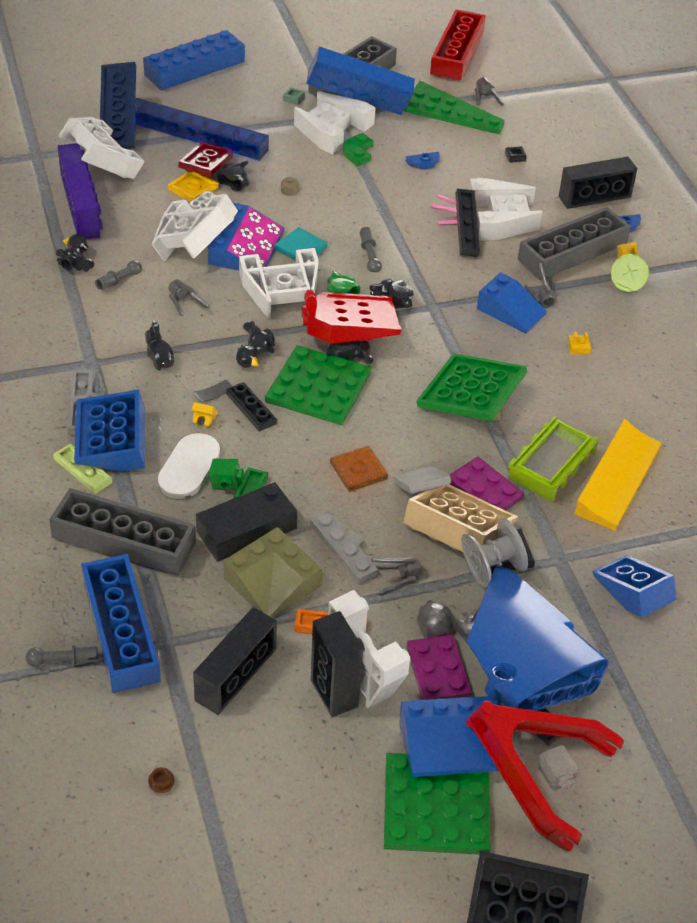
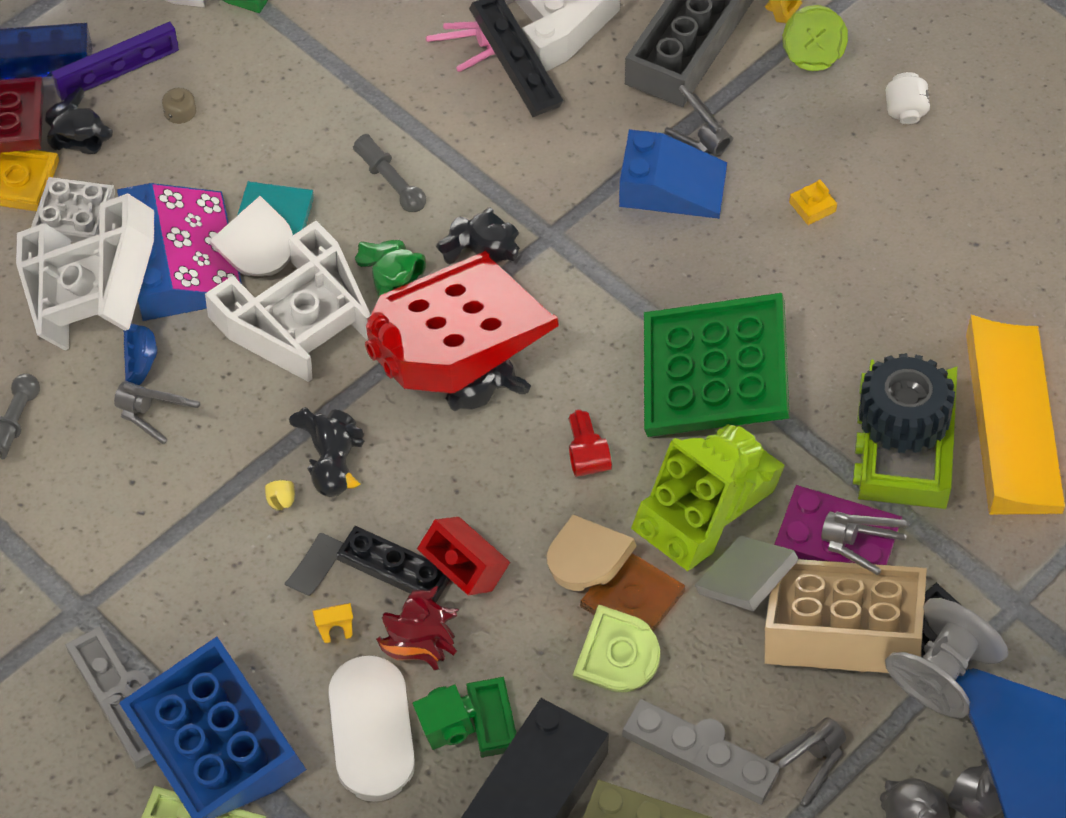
camera: 25 degrees left, 10 degrees up
(157, 348) = (182, 534): black animal -> none
(195, 273) = (139, 353): none -> blue plate
(218, 354) = (280, 494): none -> light yellow hinge
(239, 431) = (419, 630): none -> dark red hair
(273, 157) = (116, 60): none -> dark purple tile
(281, 248) = (255, 240): none -> white tile
(284, 412) = (463, 555): none -> red brick
(318, 385) = (474, 466): green plate -> none
(332, 486) = (618, 652): none -> yellowish green tile
(348, 439) = (587, 554): none -> tan tile
(381, 398) = (588, 450): none -> red axle
(425, 429) = (703, 490): none -> lime brick
(483, 479) = (843, 529): none -> flat silver plant
(556, 436) = (906, 403): none -> black wheel
(663, 318) = (907, 98): none -> white head

